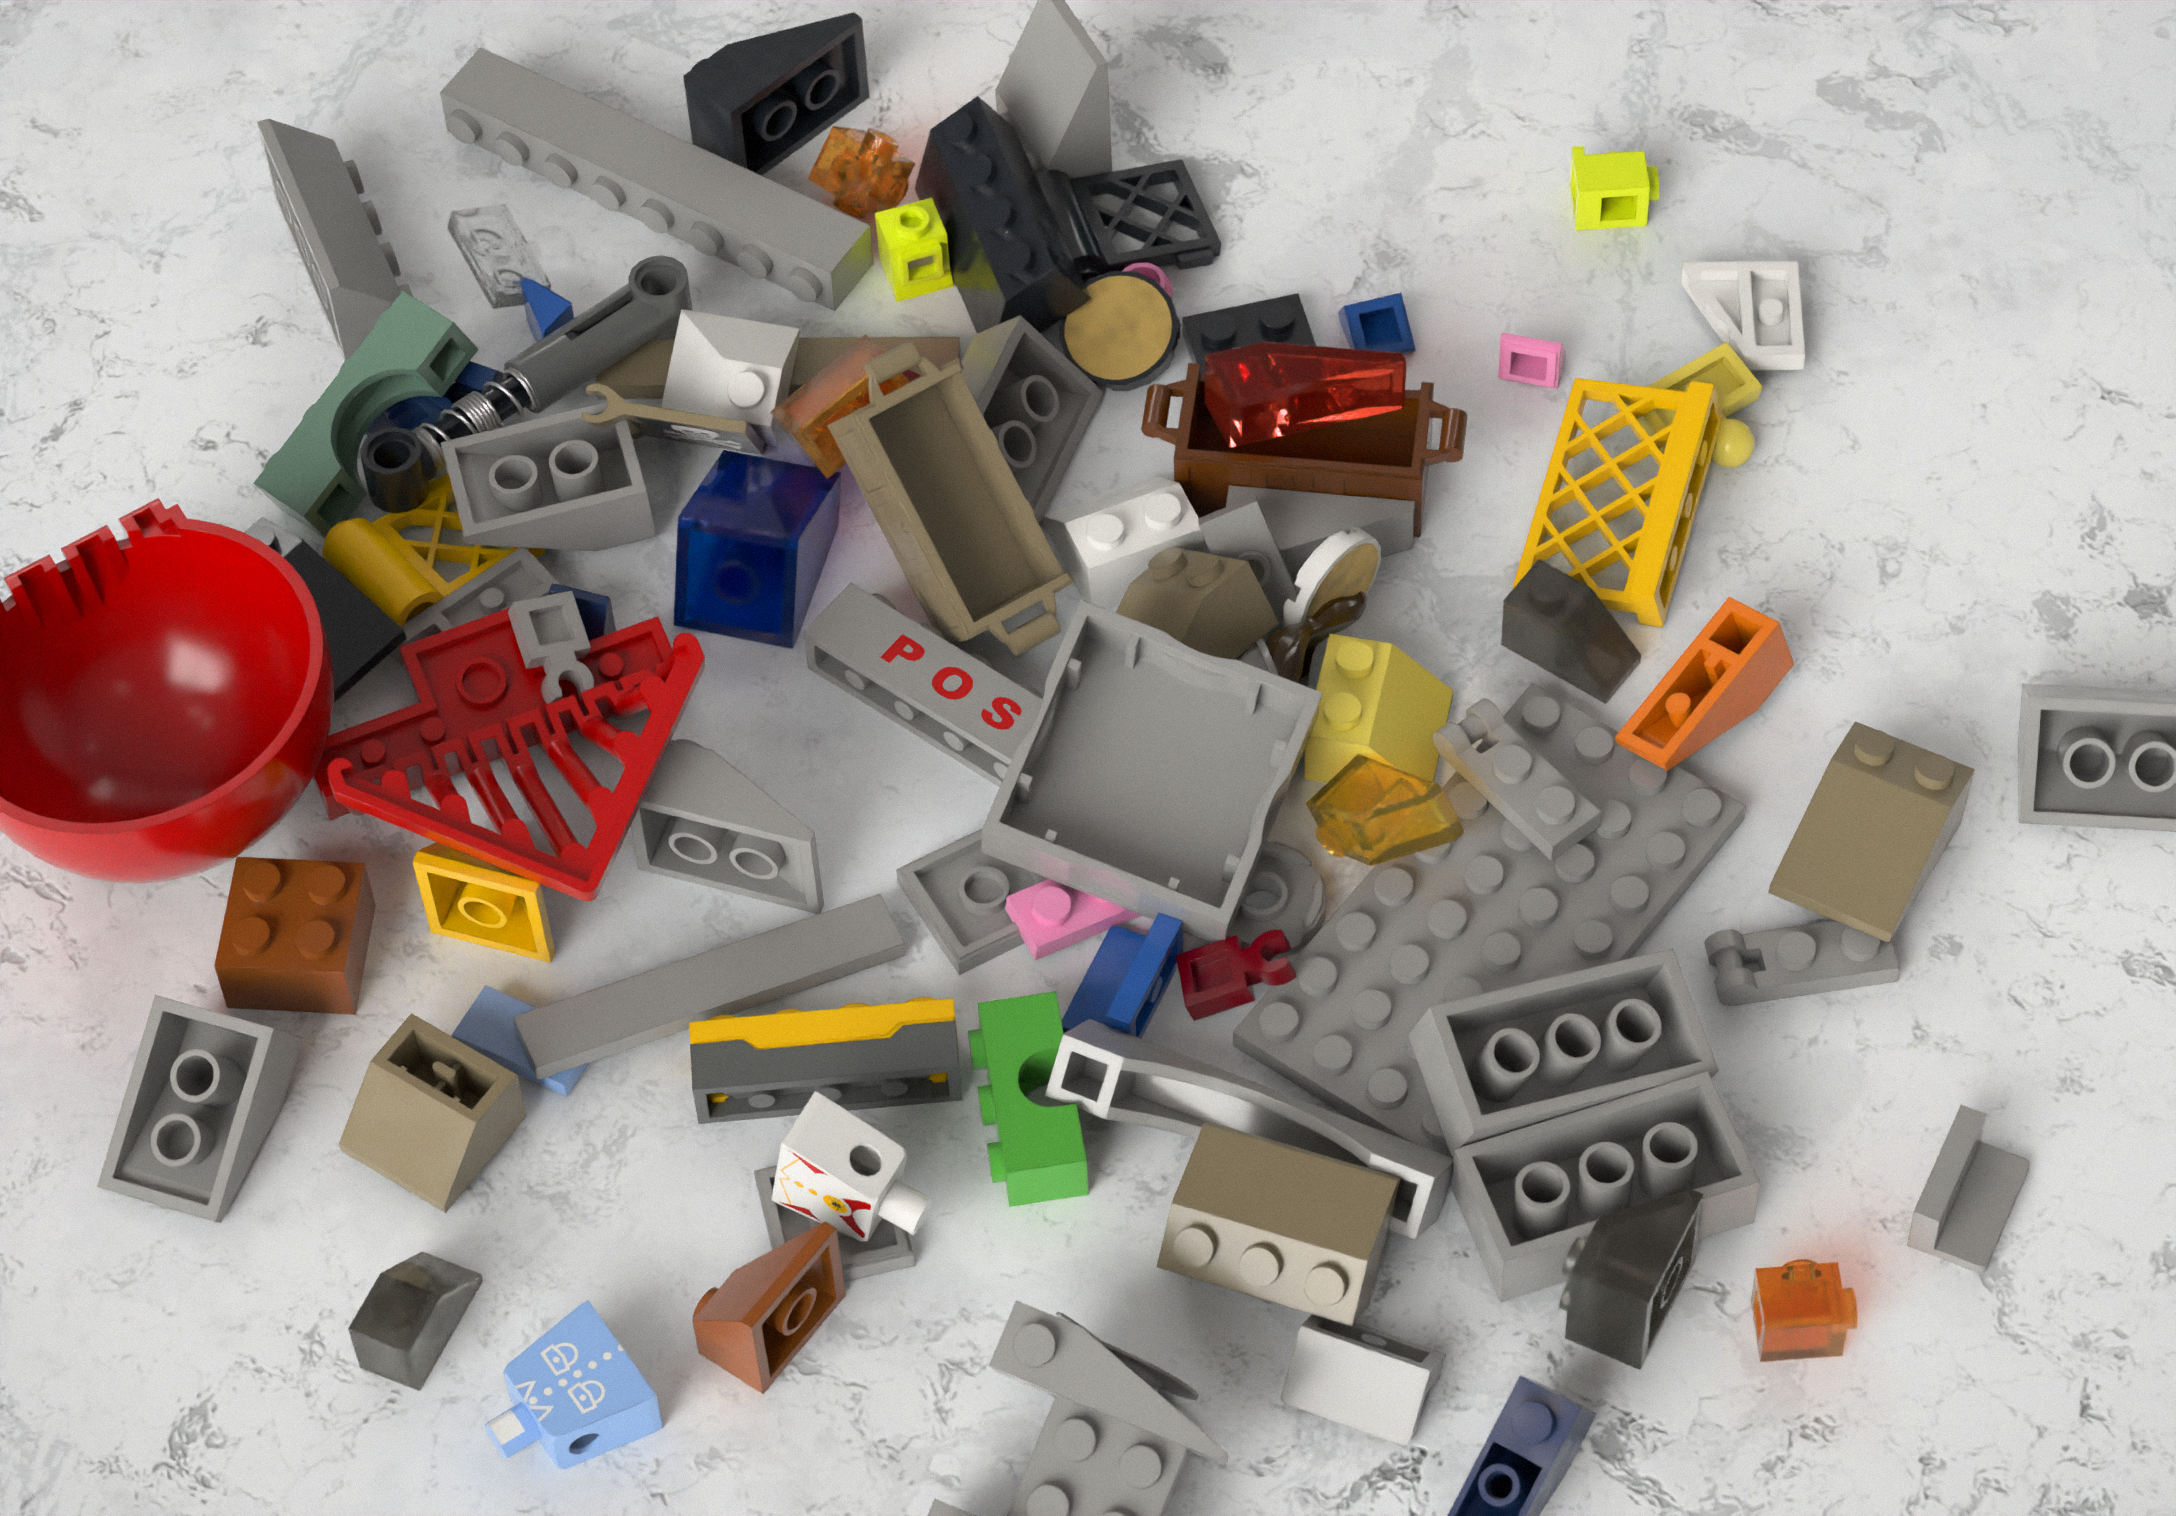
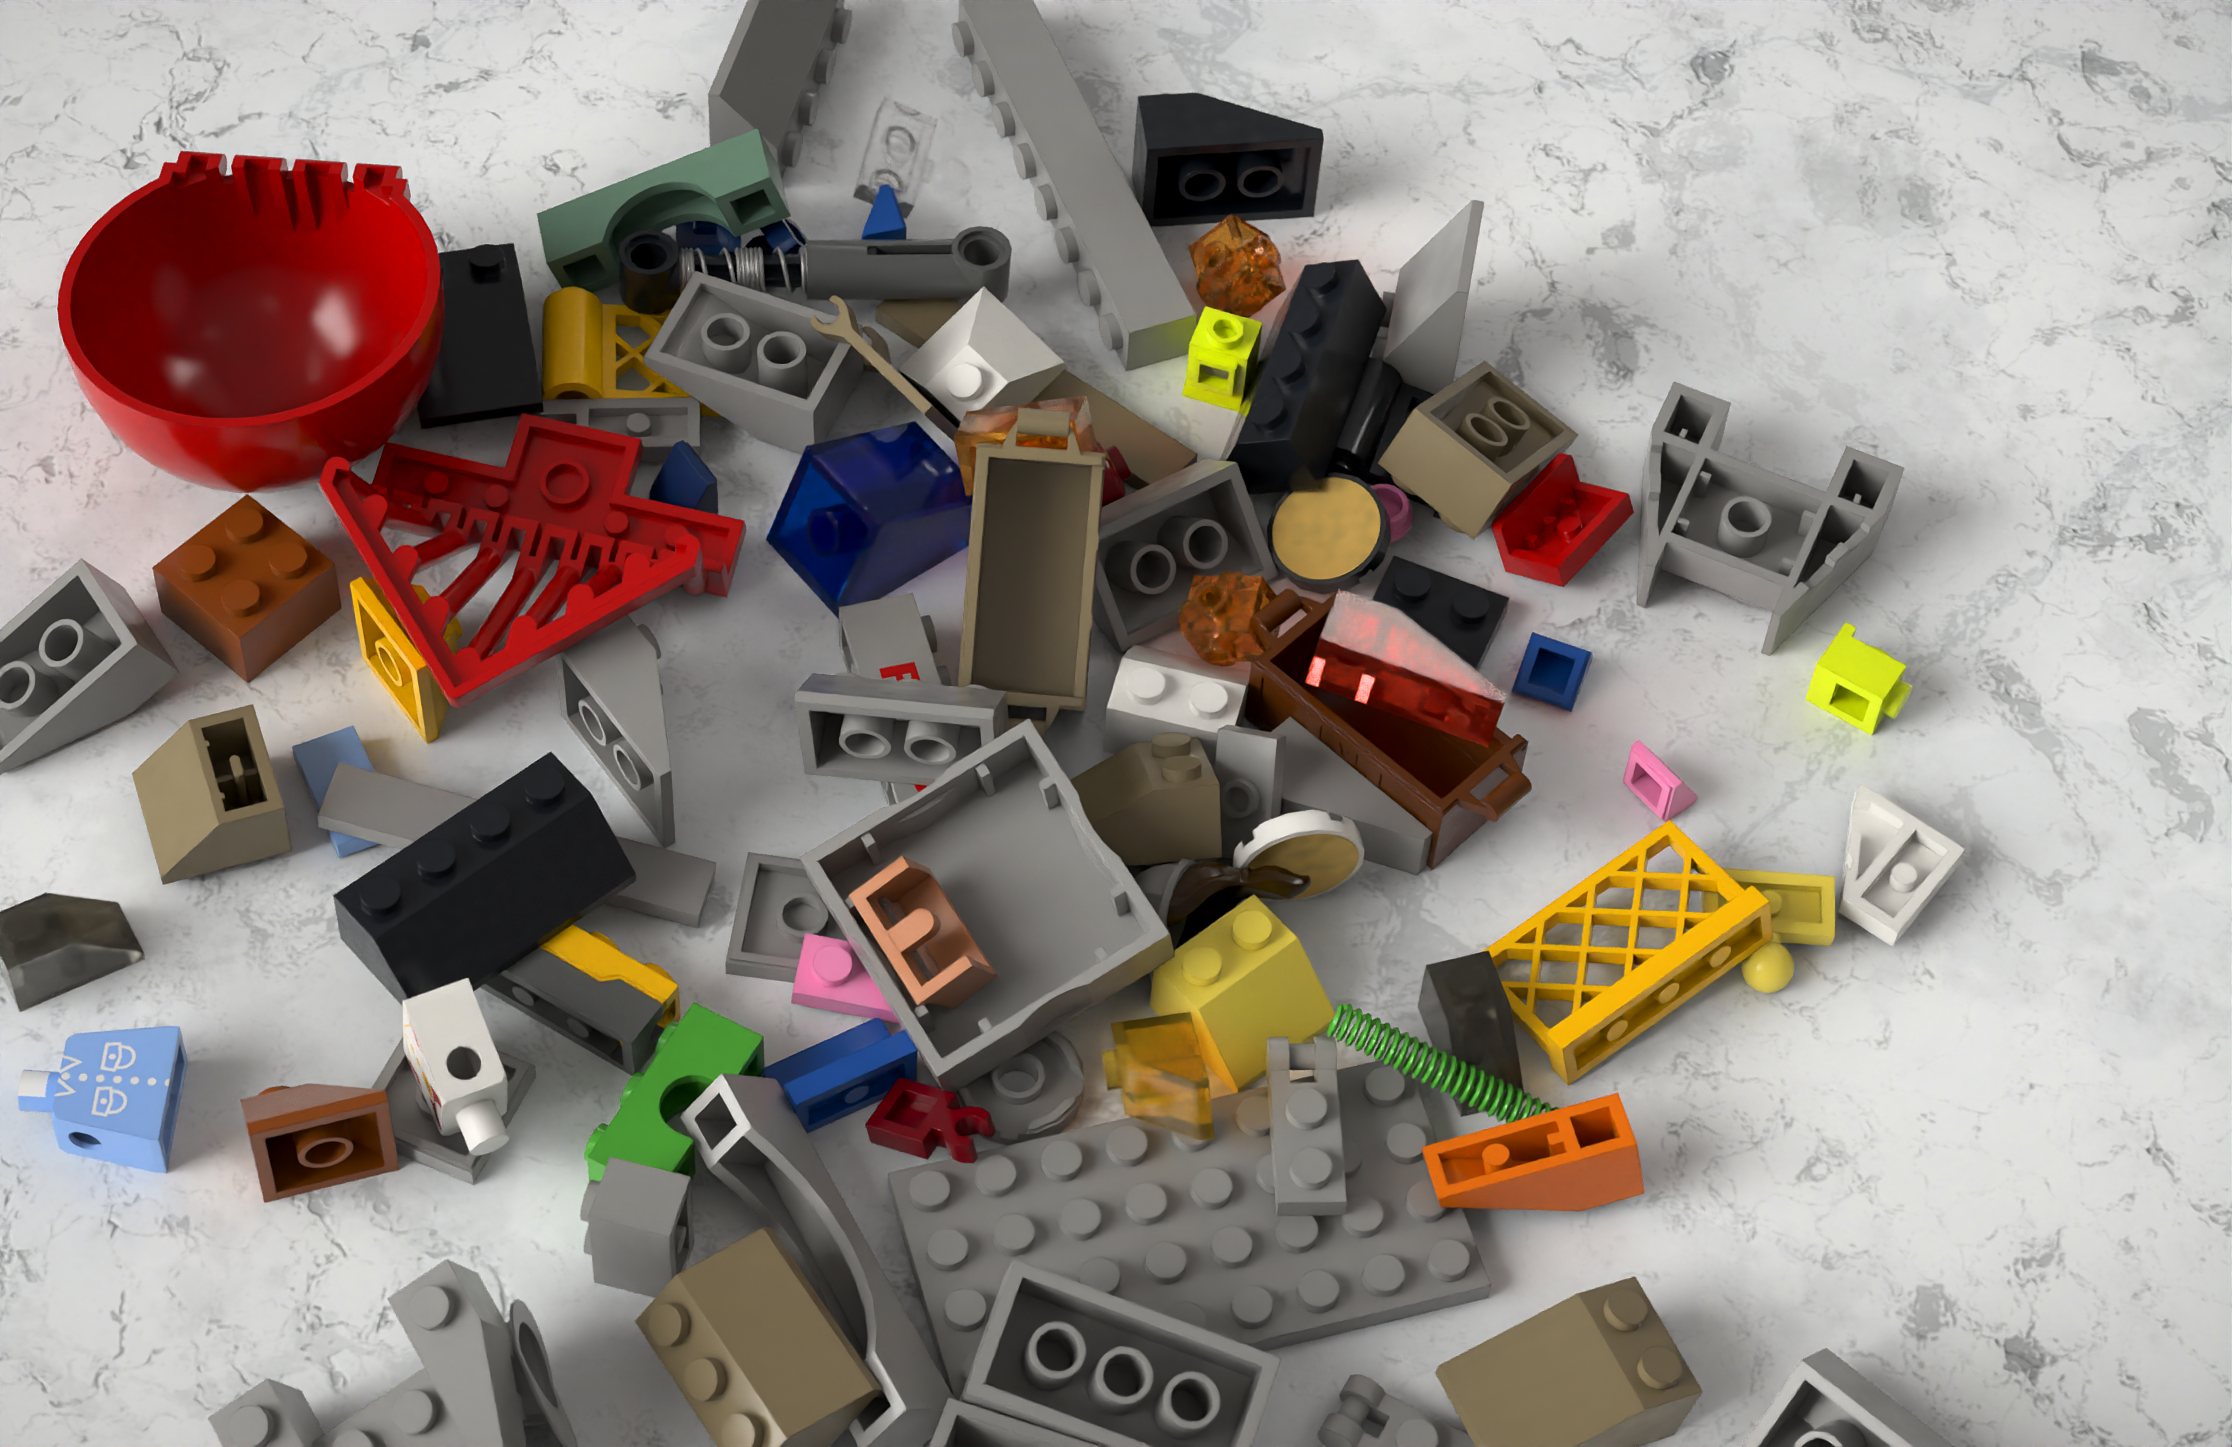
camera: 30 degrees right, 0 degrees up
(552, 637) = (639, 481): light grey plate -> none
(743, 1026) = (485, 885): none -> black slope
(958, 684) = (893, 727): none -> light grey slope
(1098, 1196) = (638, 1226): none -> light grey brick
(1109, 443) = (1219, 615): none -> clear orange brick
(1127, 824) = (922, 934): none -> nougat window
(1180, 195) = (1474, 448): none -> dark tan slope
(1287, 213) = (1558, 523): none -> red bracket
(1421, 123) = (1749, 526): none -> light grey wedge
(1574, 659) = (1429, 1070): none -> bright green piece

